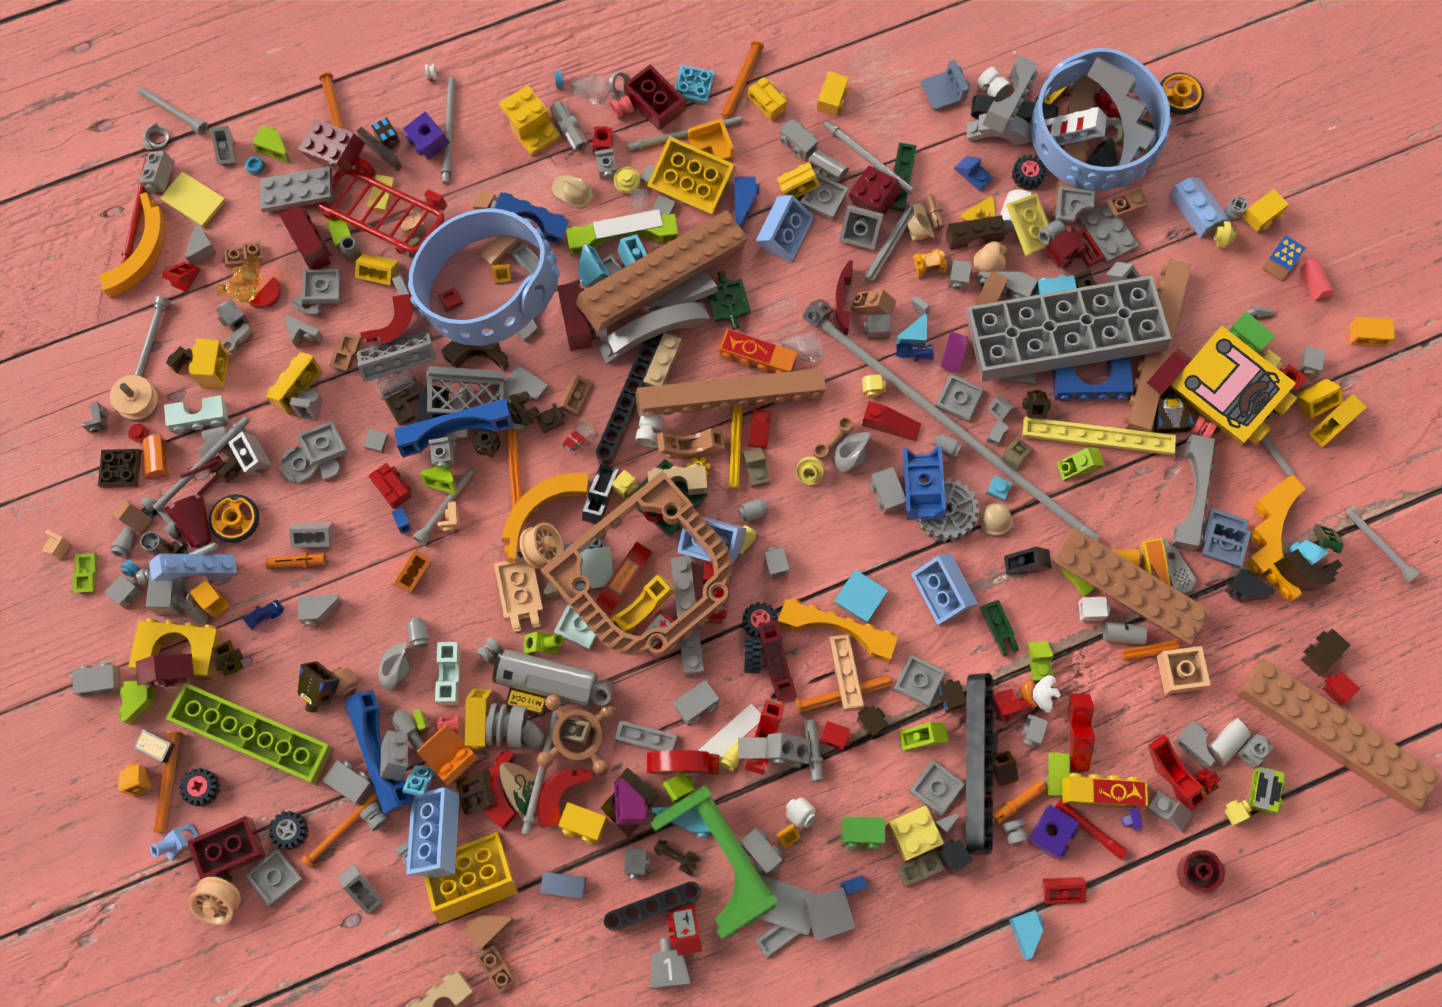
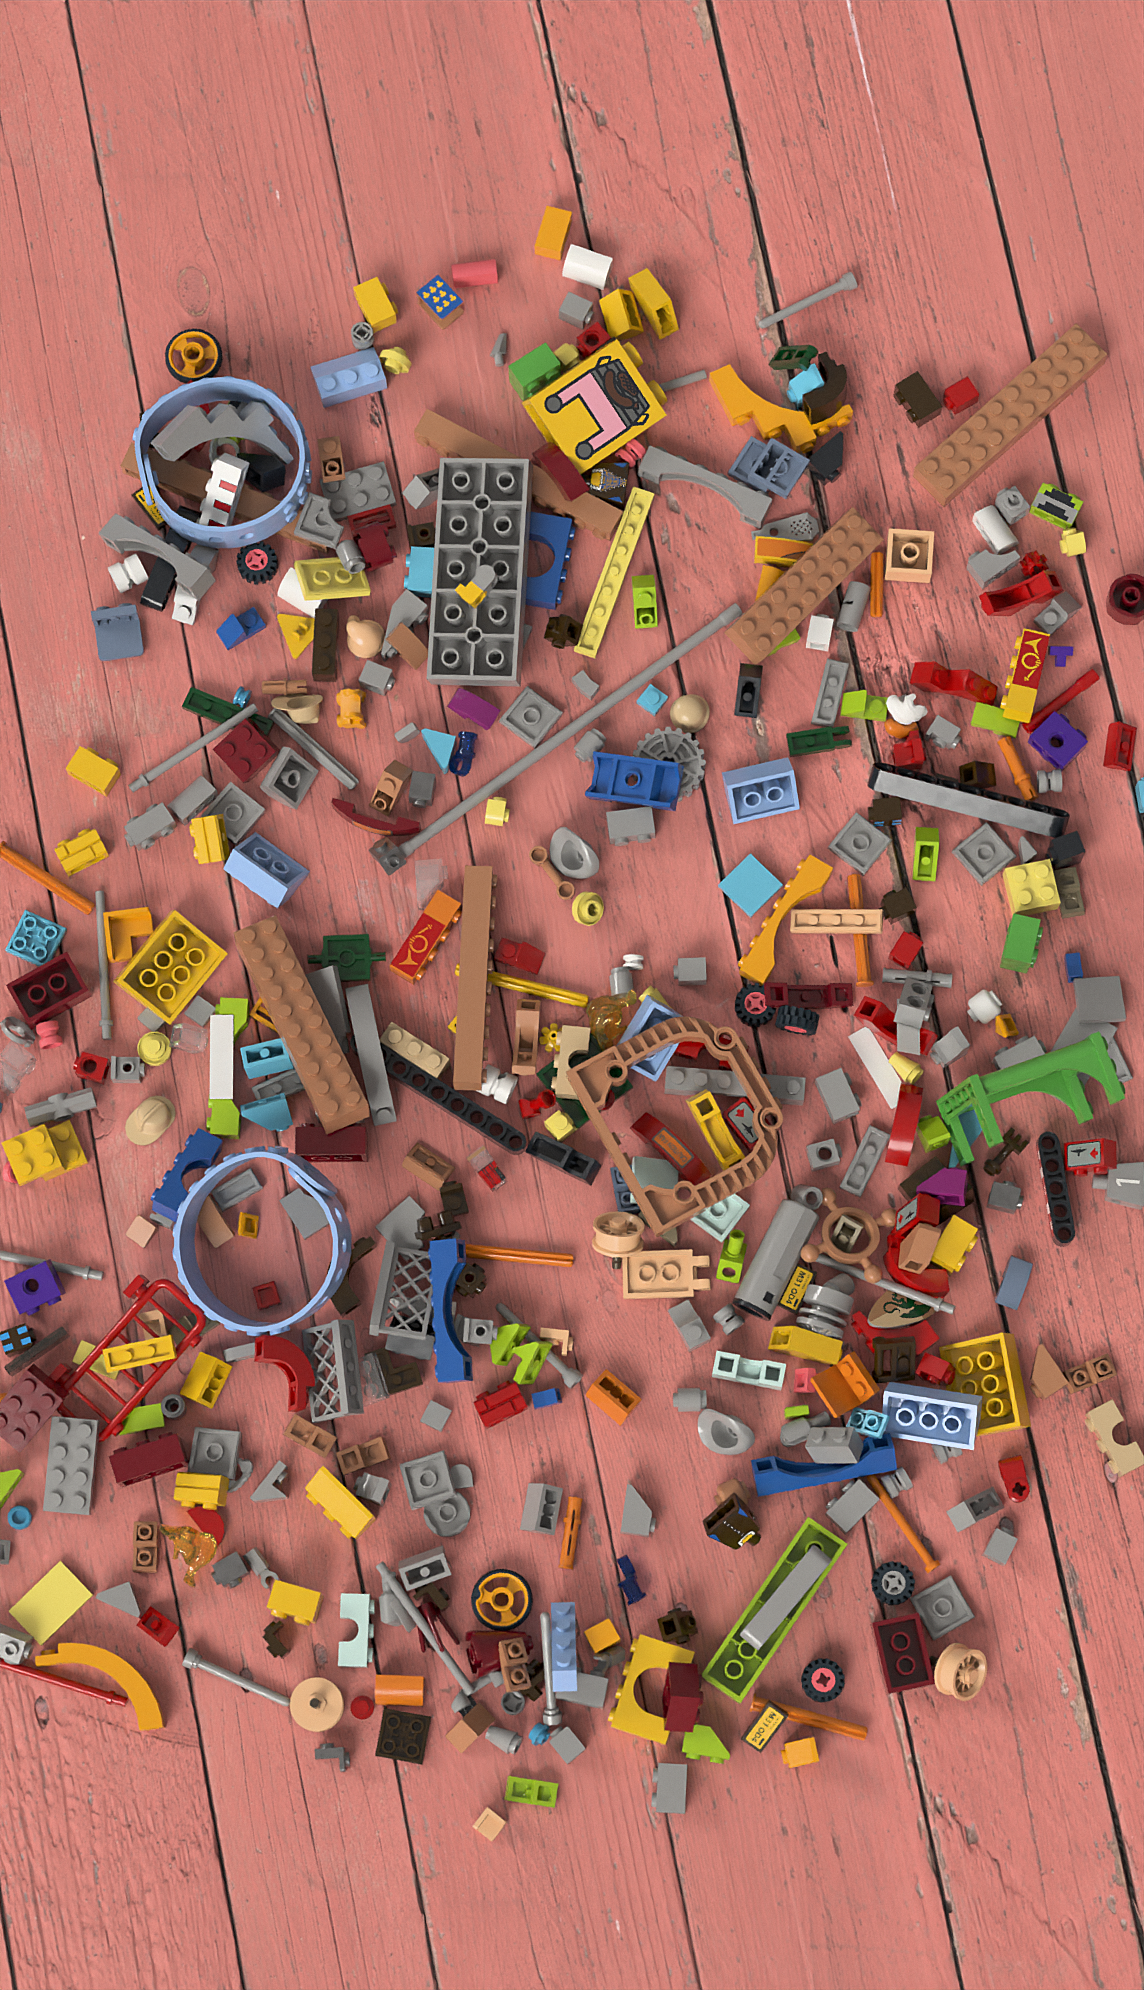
camera: 75 degrees left, 5 degrees up
(173, 842) = (882, 1714): light blue bracket -> none
(176, 533) = (513, 1667): none -> nougat slope
(255, 737) = (785, 1597): none -> light grey beam
(288, 280) = (201, 1489): none -> yellow brick
(331, 916) = (1000, 1545): none -> light grey brick
(335, 393) = (363, 1455): none -> nougat slope
(383, 211) = (139, 1353): none -> yellow plate
(396, 917) = (1013, 1474): none -> red piece
(427, 501) = (533, 1359): none -> lime slope
(474, 831) = (935, 1370): none -> red brick
(479, 620) = (689, 1325): none -> light grey arch
(553, 488) = (559, 1238): light orange arch -> none
(570, 791) = (918, 1248): none -> nougat slope
(598, 786) = (918, 1210): none -> red brick
(638, 463) = (531, 1106): none -> red leg
(643, 692) = (816, 1162): none -> light grey brick
(720, 503) = (606, 1016): none -> clear yellow piece
(744, 197) = (212, 909): blue slope -> none
(756, 467) = (566, 970): dark tan slope -> none
(756, 788) = (950, 1048): none -> light grey arch
(774, 515) = (633, 961): none -> white bush
(890, 421) = (545, 803): red slope -> none
(918, 183) = (242, 697): none -> dark azure bush
(1000, 408) = (556, 673): light grey tile -> none
(1016, 453) = (615, 669): dark tan slope -> none
(1043, 630) = (830, 693): none -> light grey tile
(1053, 325) = (479, 586): none -> leg
(1352, 363) = (587, 267): none -> white brick

